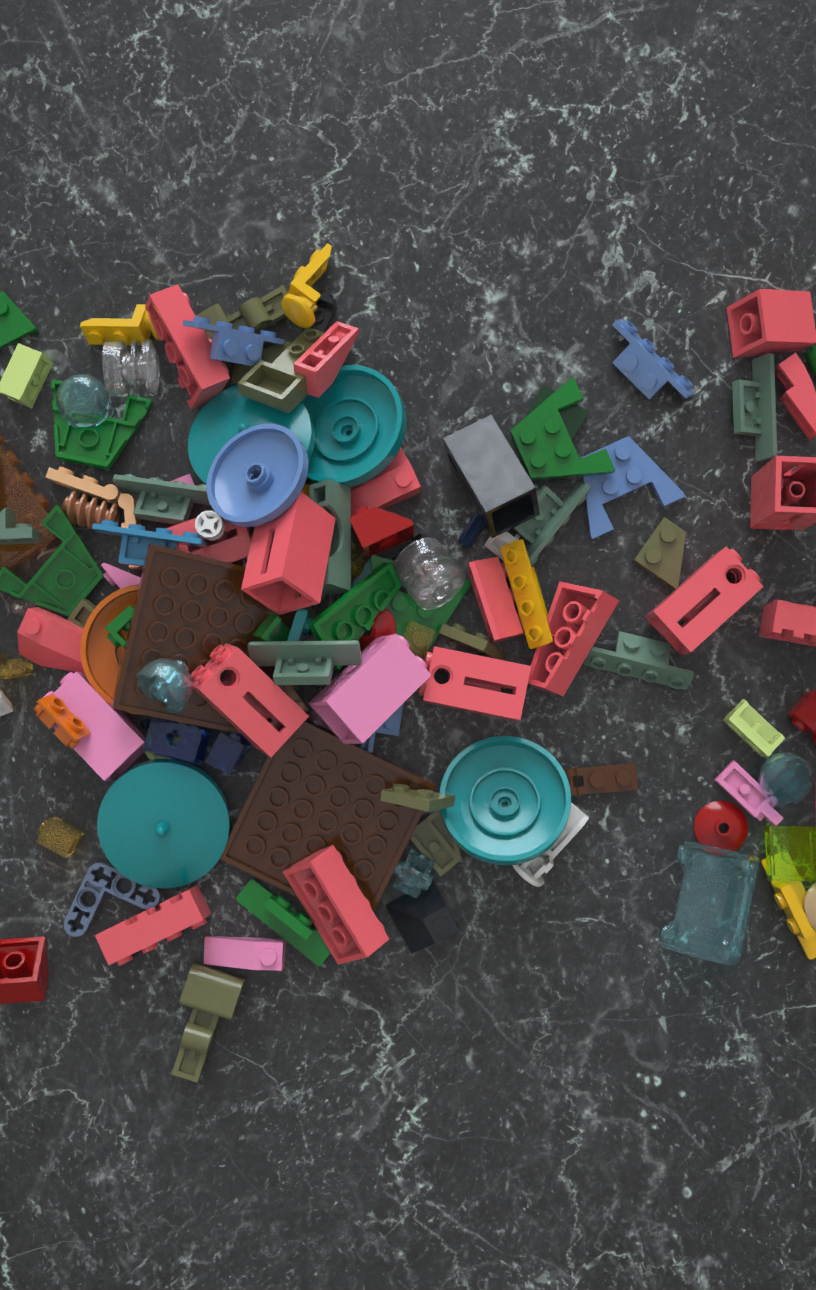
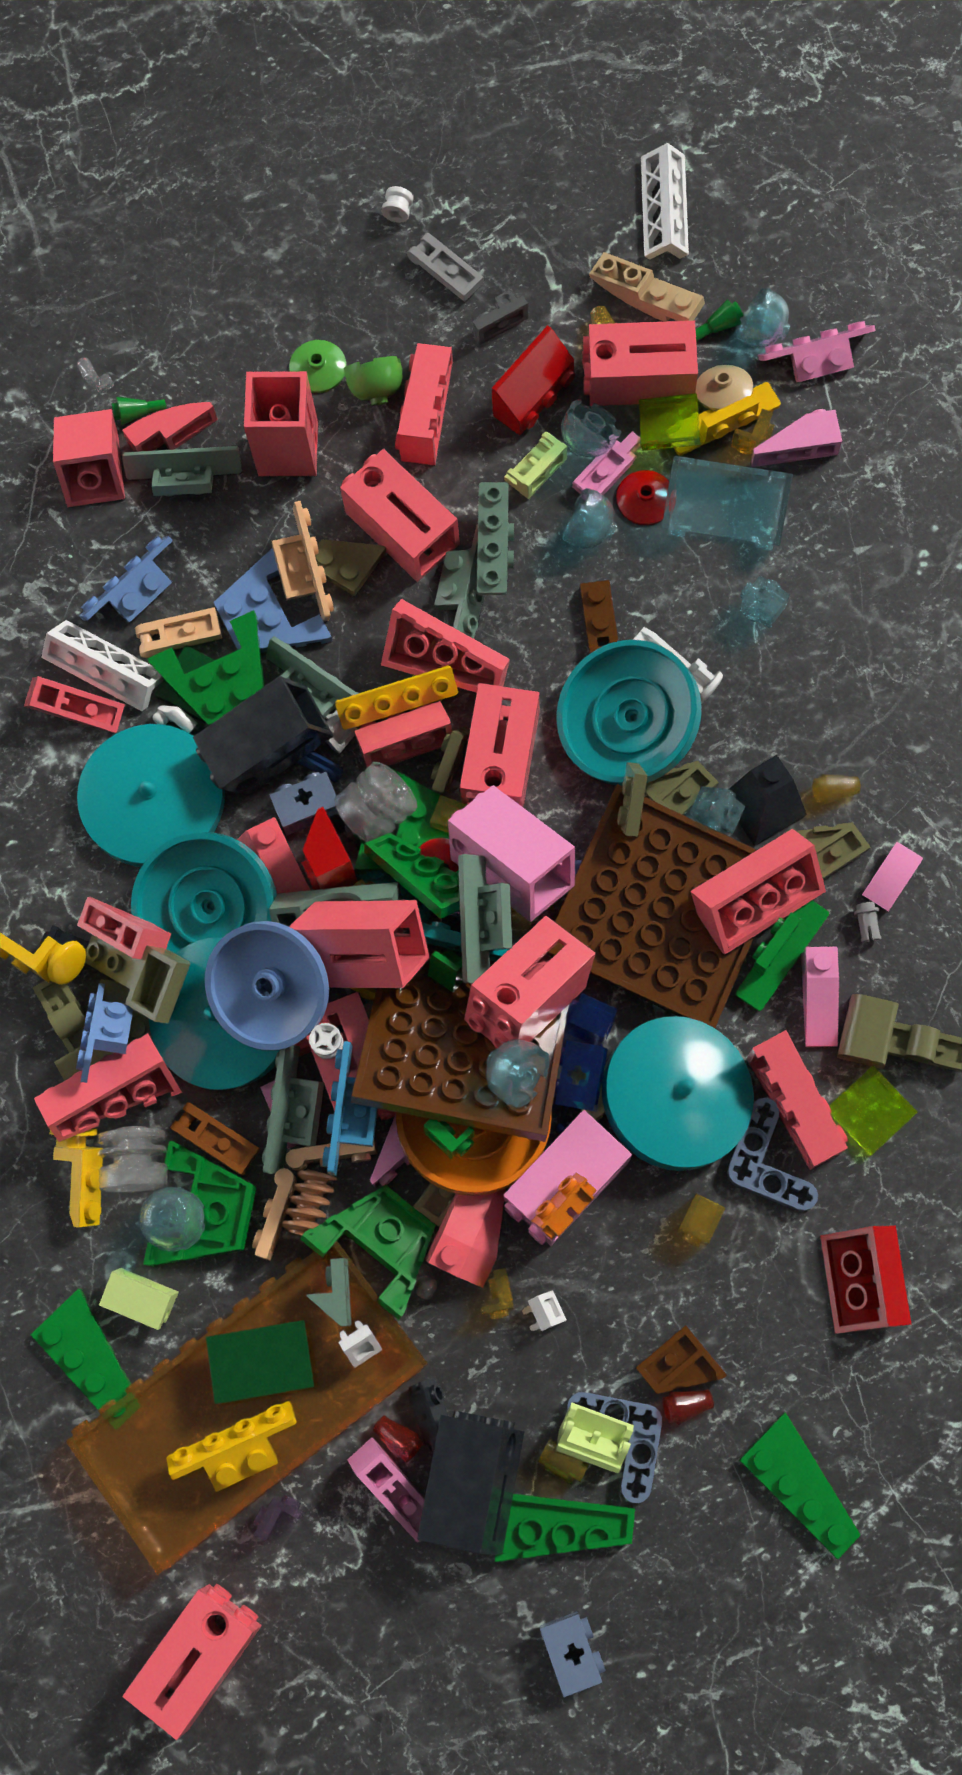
camera: 90 degrees left, 10 degrees down
(146, 988) = (872, 1110): none -> clear neon green tile
(151, 437) = (216, 1139): none -> dark orange plate
(311, 999) = (868, 920): none -> light grey pin
(349, 1025) = (892, 876): none -> bright pink slope
(379, 972) = (835, 846): none -> olive wing
(427, 502) = (289, 806): none -> sand blue brick
(432, 980) = (834, 787): none -> clear yellow cone
(451, 378) = (146, 791): none -> teal container
(522, 404) = (174, 714): none -> white arm
(535, 314) = (73, 704): none -> coral slope
(571, 335) = (100, 666): none -> white fence
(601, 406) = (178, 632): none -> light nougat plate
(617, 936) = (763, 601): none -> clear light blue brick
(658, 509) = (299, 566): none -> light nougat bracket
(677, 685) = (493, 539): none -> sand green bracket
(693, 775) = (590, 521): none -> clear light blue cylinder
(773, 983) = (806, 438): none -> bright pink slope
(780, 940) = (763, 430): none -> clear yellow bracket

